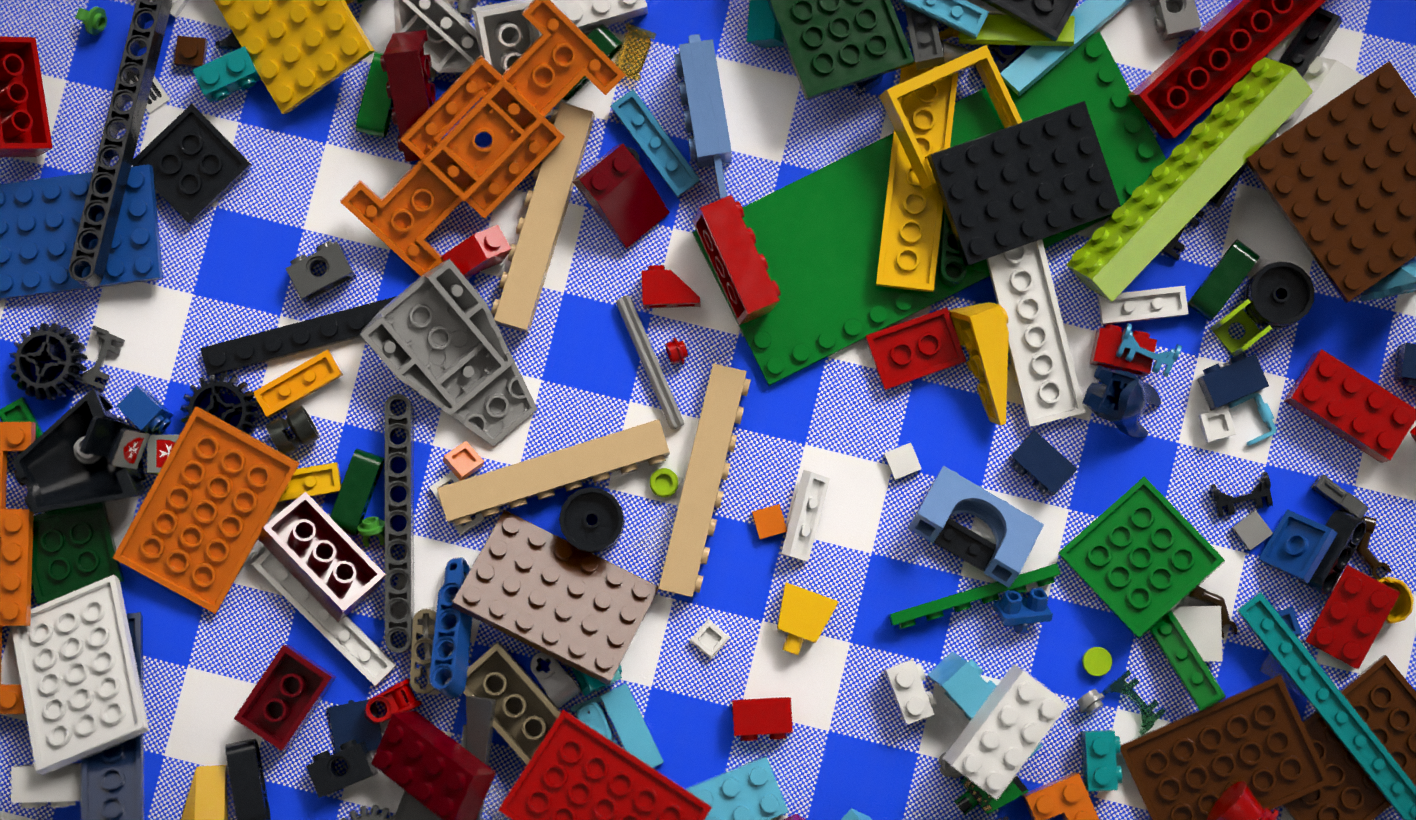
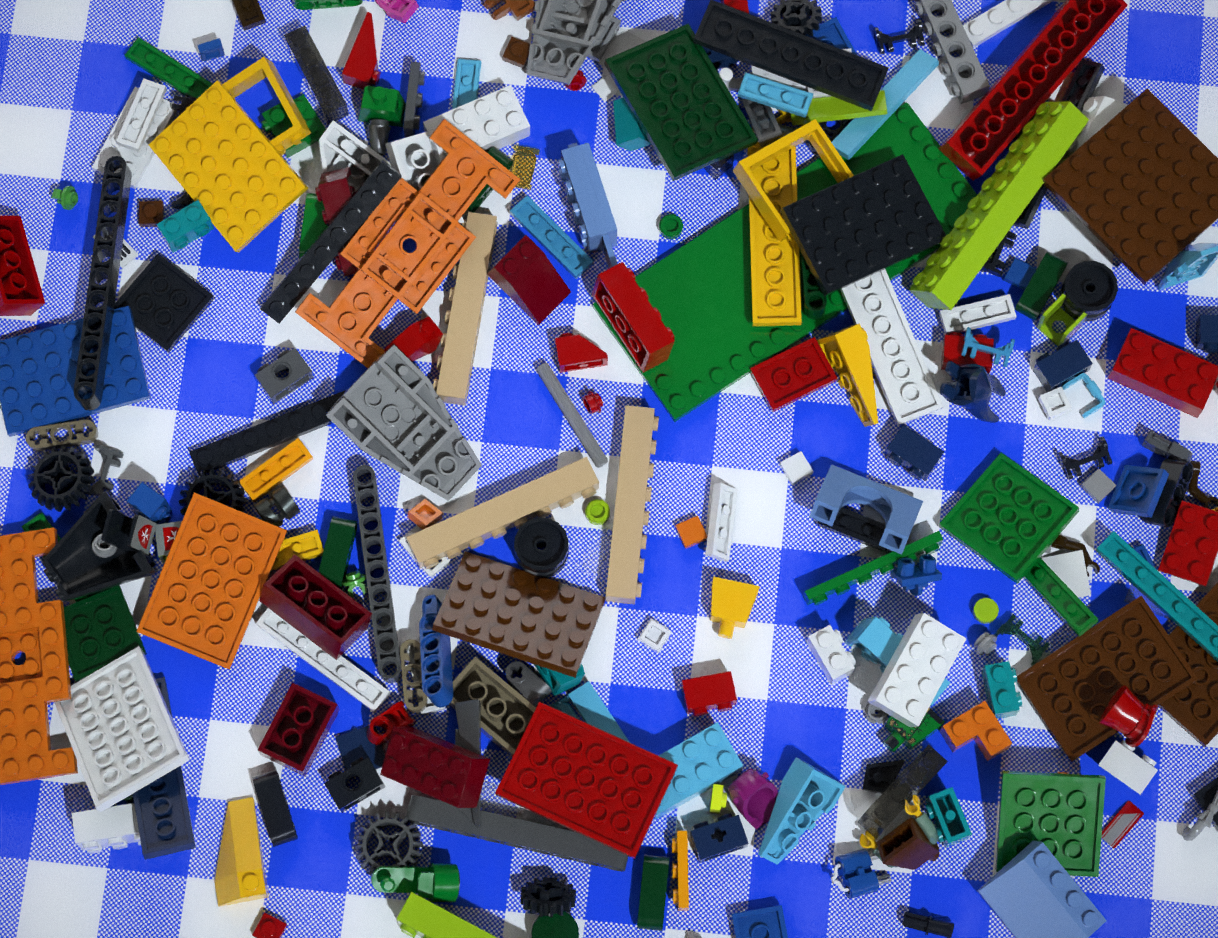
camera: 10 degrees left, 10 degrees down
(35, 315) = (54, 428): none -> dark tan beam
(393, 120) = (331, 241): none -> black plate
(798, 148) = (671, 226): none -> green tile
(1200, 261) = (1019, 274): none -> blue tile

